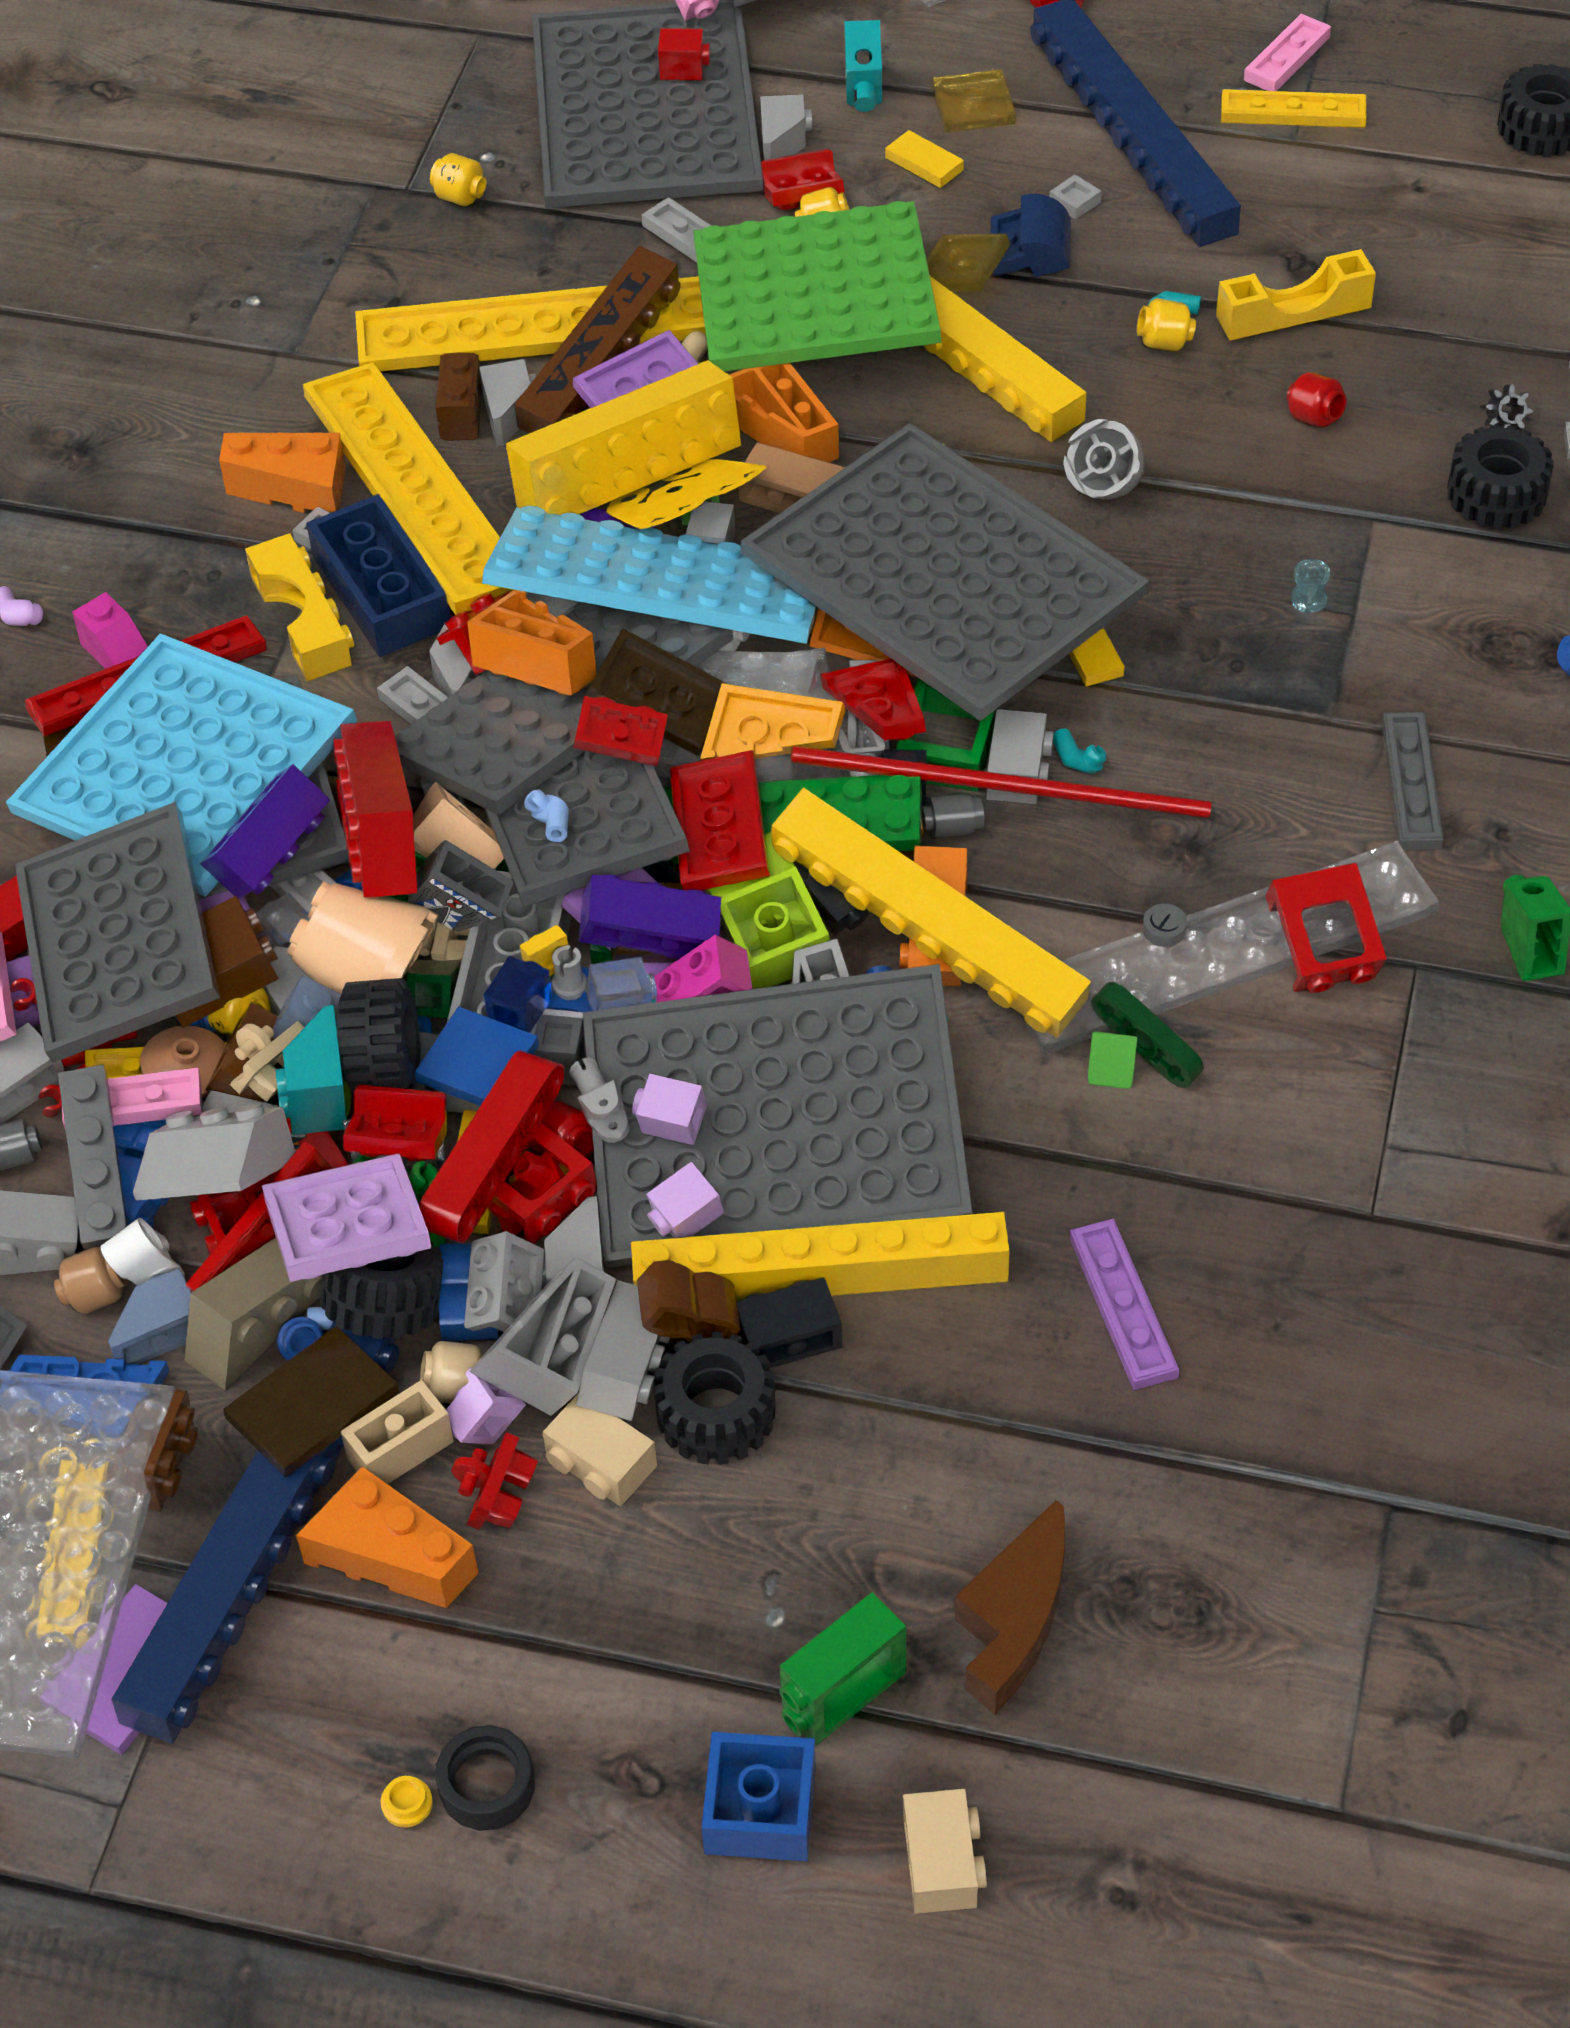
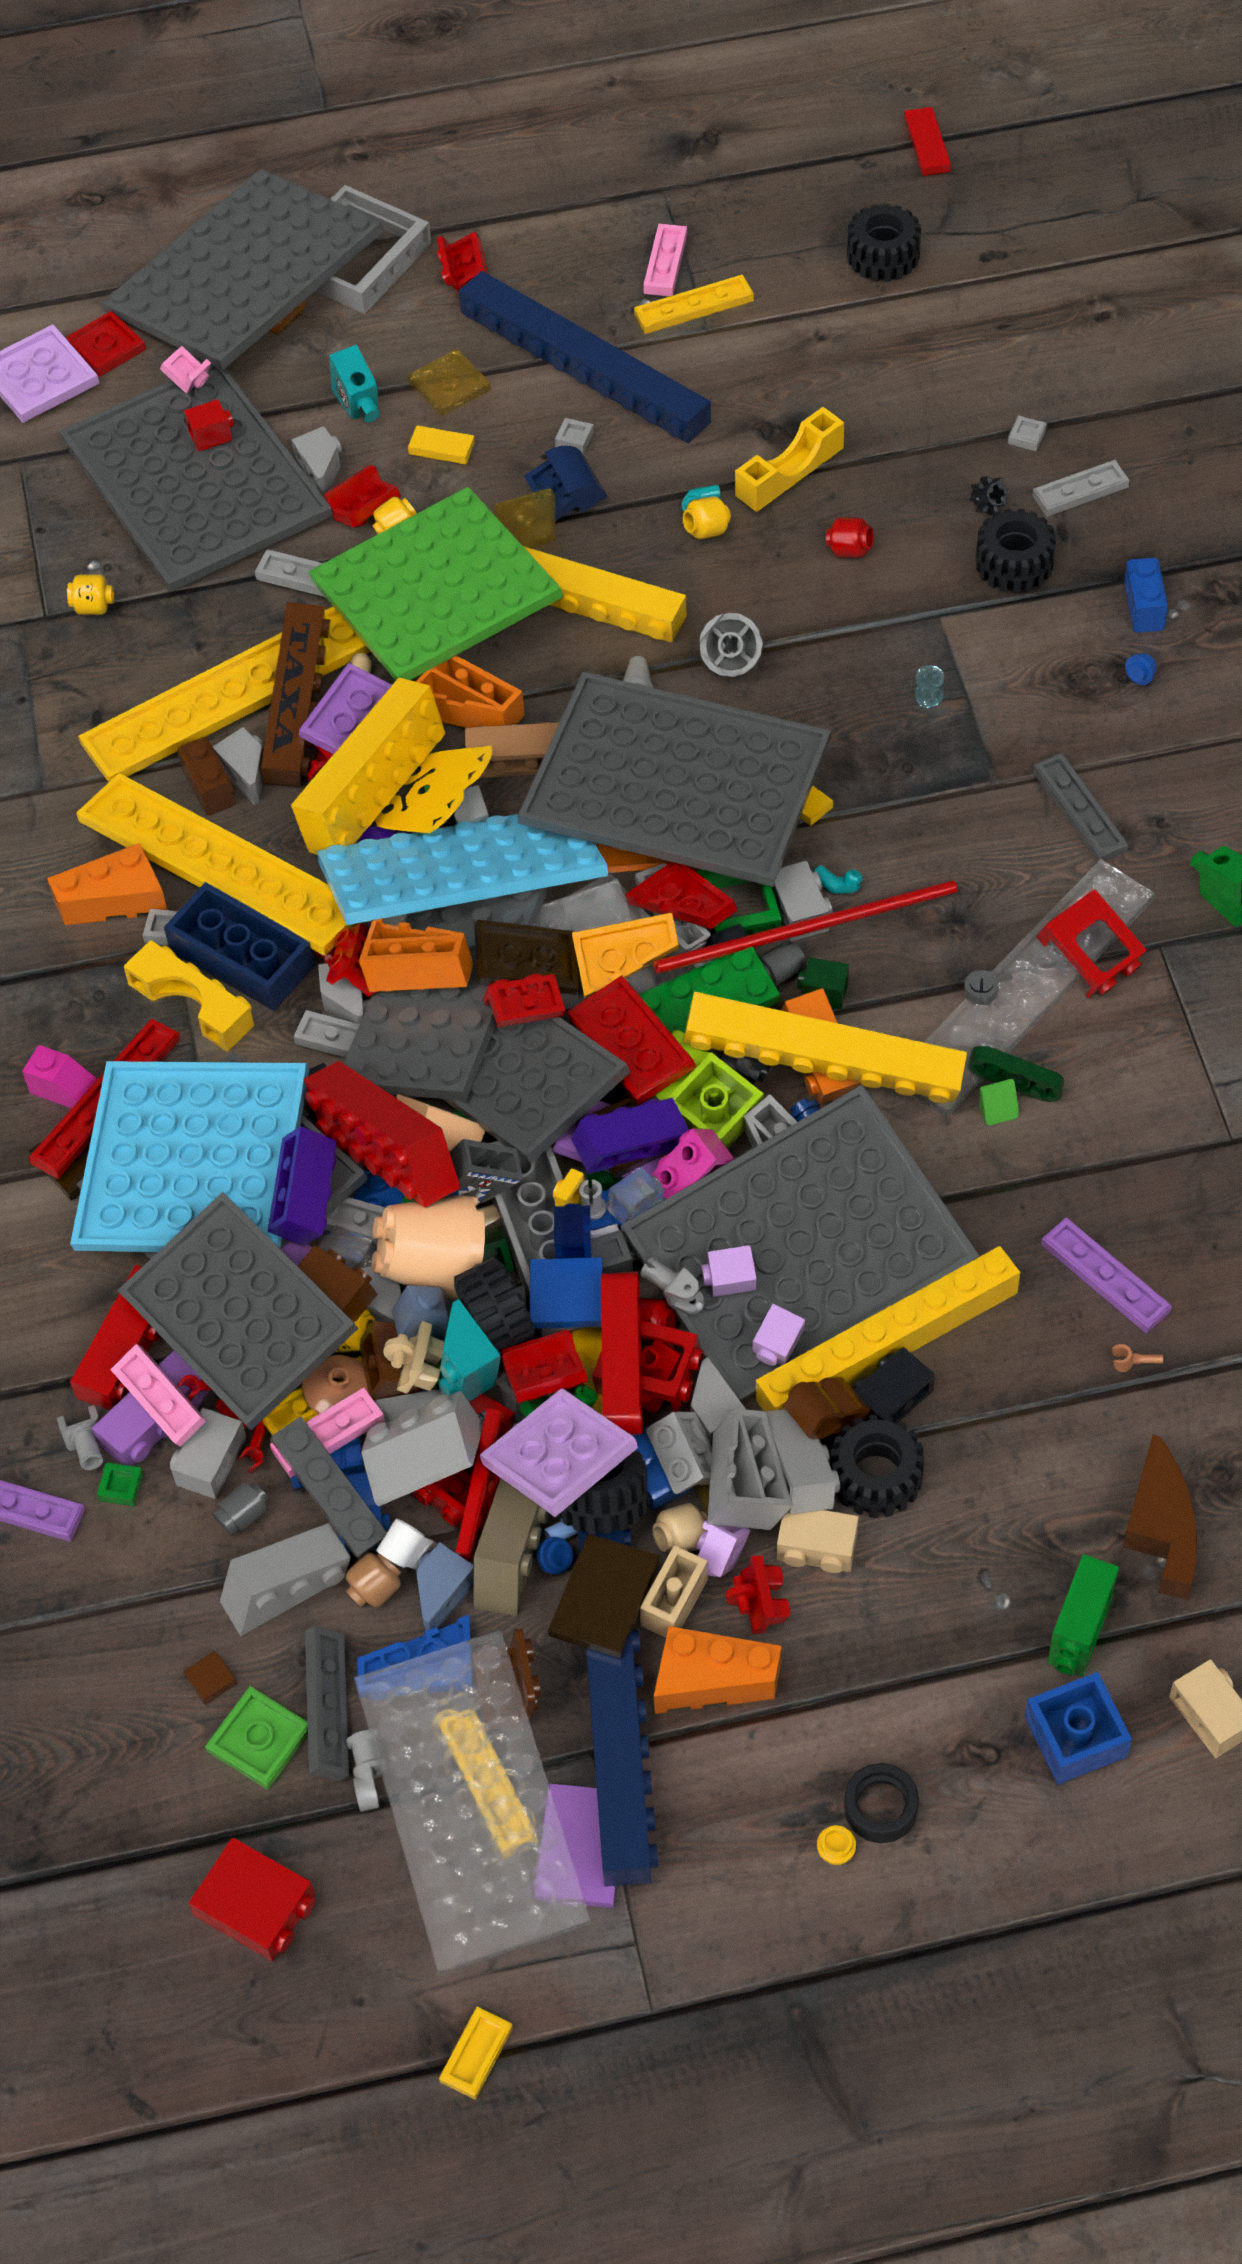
camera: 25 degrees left, 5 degrees up
(550, 811) = (510, 1083): light blue arm -> none
(988, 456) = (638, 672): none -> light grey cone
(992, 854) = (828, 975): none -> dark green brick
(1091, 1409) = (1132, 1358): none -> nougat hand

